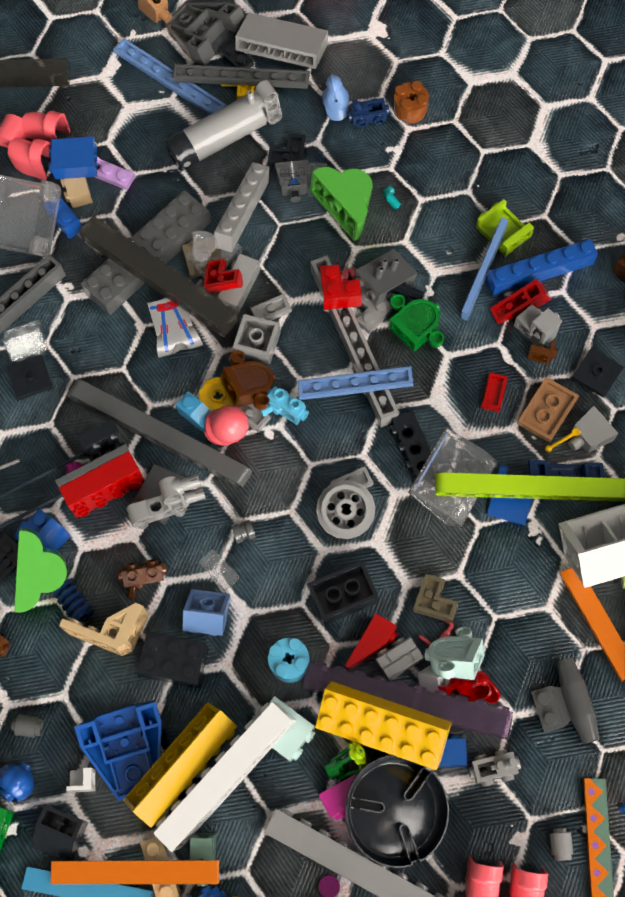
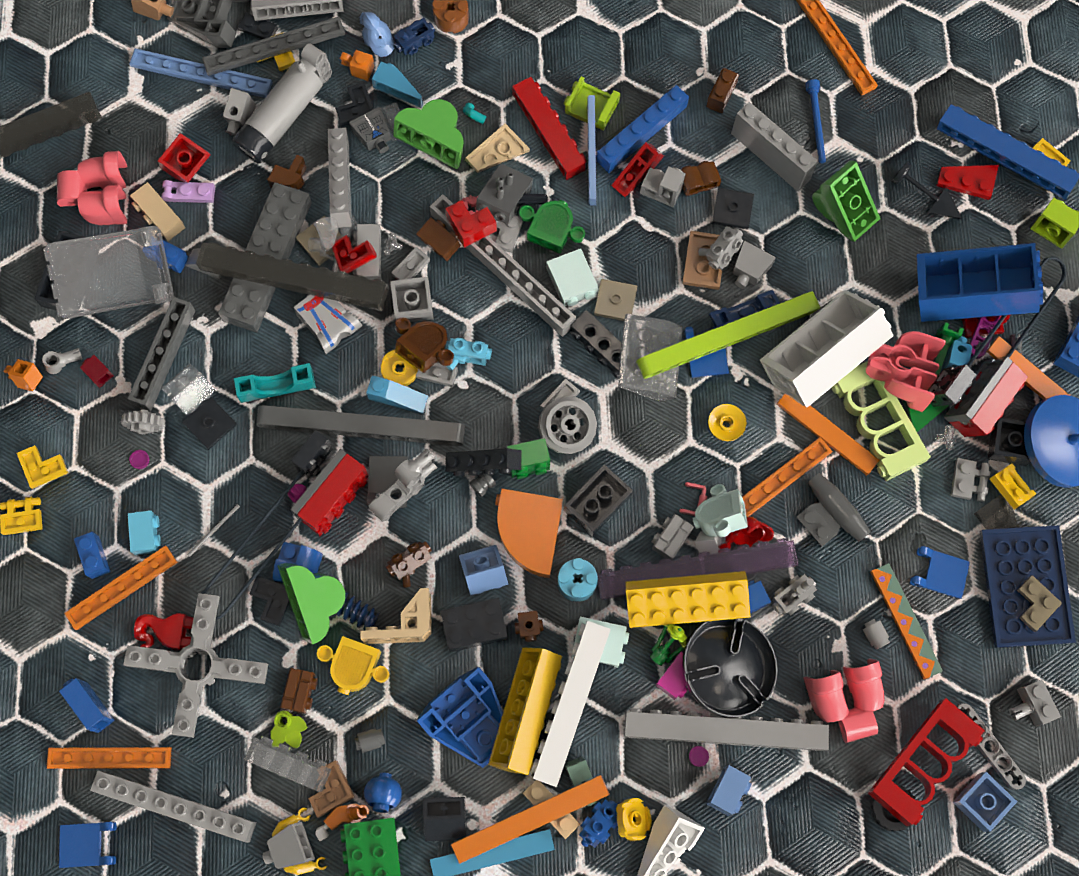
camera: 30 degrees left, 5 degrees up
(45, 648) = (353, 665): none -> yellow piece
(73, 157) = (149, 191): blue brick -> none
(81, 361) = (257, 387): none -> teal arch
(82, 780) = (442, 765): white panel -> none
(116, 141) = (183, 159): none -> red slope
(183, 116) = (238, 110): none -> light grey torso
(202, 192) = (291, 177): none -> reddish brown brick
(219, 570) = (476, 527): clear plate -> none
(222, 676) = (525, 619): none -> reddish brown brick
(226, 425) = (423, 392): coral tile -> none
(250, 510) = (483, 461): none -> black brick
(263, 284) = (391, 244): none -> clear plant
(267, 592) = (529, 529): none -> orange brick
(295, 525) = (534, 458): none -> green brick
(306, 294) = (439, 239): none -> reddish brown brick
(308, 118) = (360, 64): none -> orange brick
(329, 142) = (392, 81): none -> dark azure slope
(355, 383) = (524, 305): medium blue tile -> none
(374, 639) = (644, 527): red slope -> none
(398, 236) = (497, 149): none -> tan wing
(422, 377) = (572, 278): none -> light aqua brick
(430, 602) = (678, 477): dark tan plate -> none
(446, 412) = (615, 299): none -> dark tan plate
(454, 236) = (548, 128): none -> red brick
(494, 392) = (649, 262): red tile -> none
(505, 562) = (730, 414): none -> yellow dish
(537, 647) = (785, 476): none -> orange tile
(541, 354) = (676, 210): reddish brown bracket -> none
(569, 404) = (723, 248): none -> light grey brick
(575, 431) = (739, 271): yellow hinge -> none
(577, 332) = (700, 178): none -> reddish brown brick

